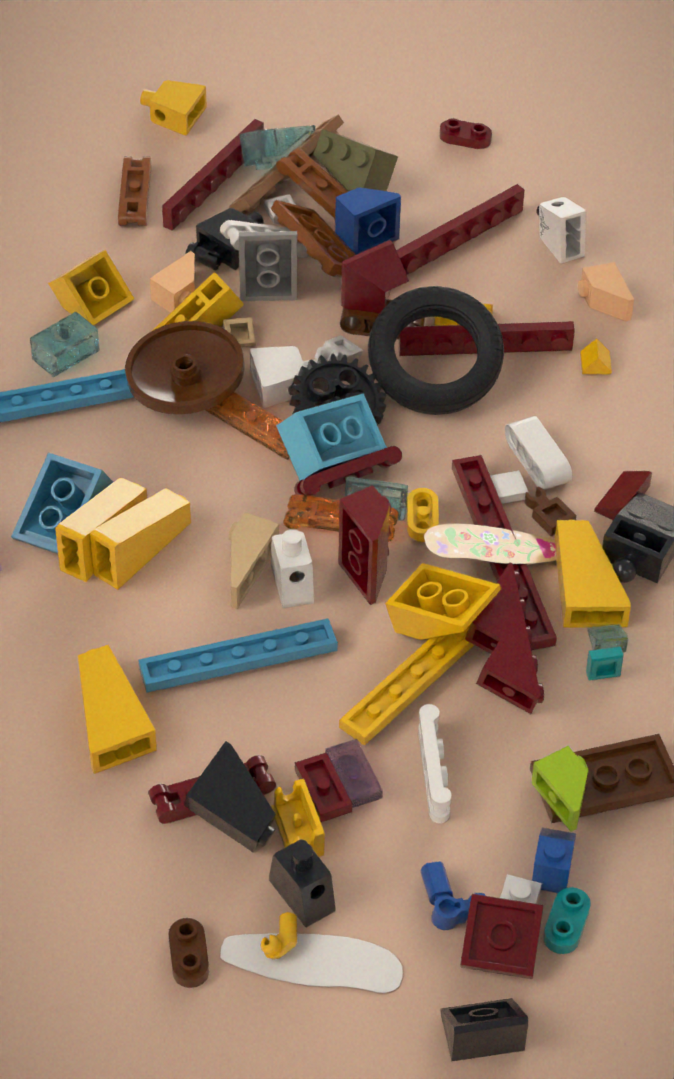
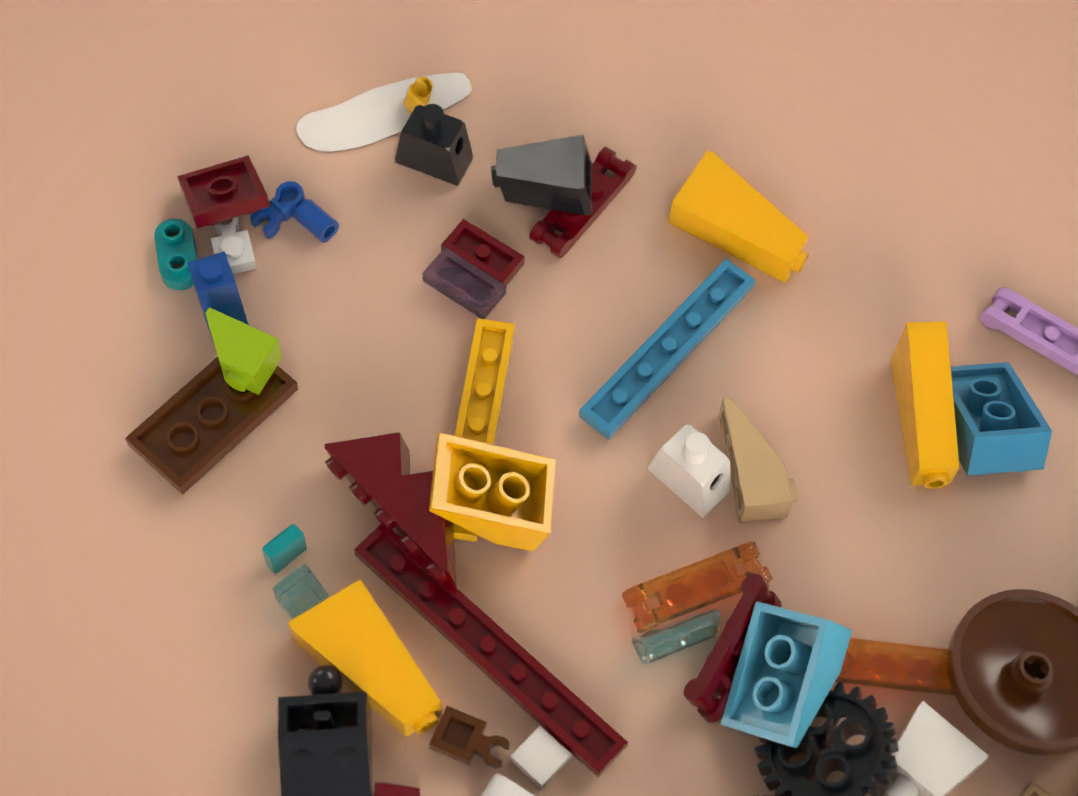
camera: 145 degrees right, 15 degrees up
(137, 536) = (879, 415): yellow slope -> none
(187, 950) = (488, 55): reddish brown plate -> none
(298, 817) = (476, 207): yellow hinge -> none
(364, 540) = (624, 512): dark red slope -> none
(421, 512) = (610, 645): yellow plate -> none
(434, 774) = (402, 339): white plate -> none
(484, 1029) = (195, 112): black slope -> none
(489, 544) = (498, 618): sticker -> none

